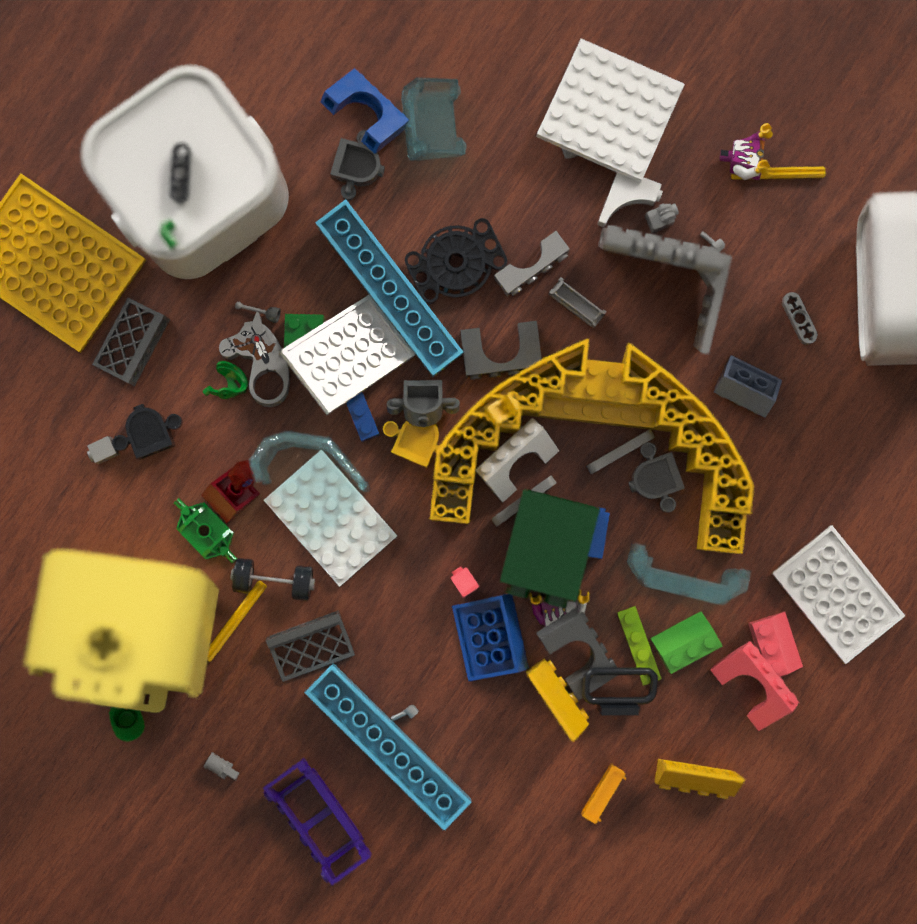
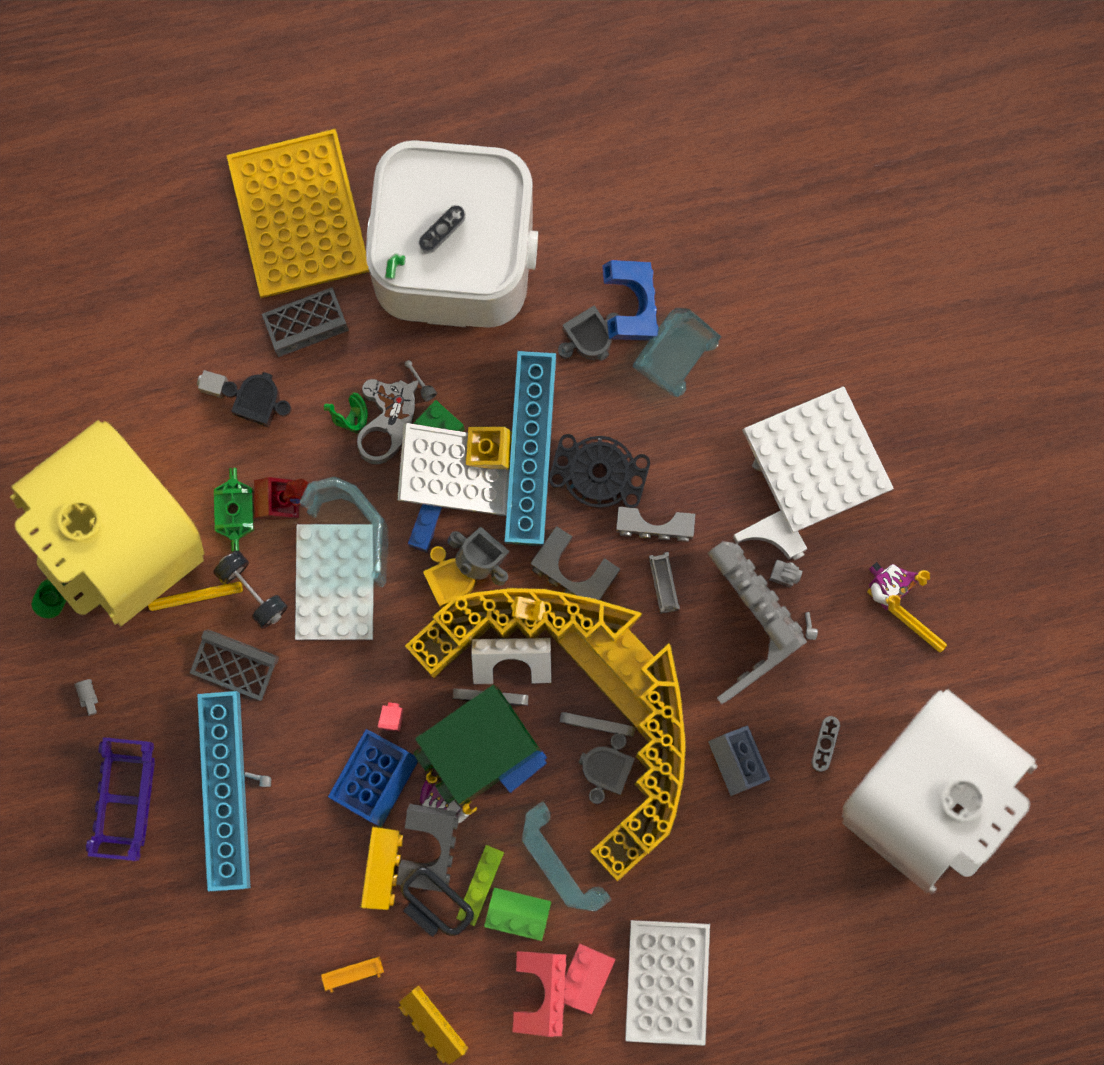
camera: 45 degrees right, 5 degrees down
(358, 314) = (489, 447): none -> yellow slope

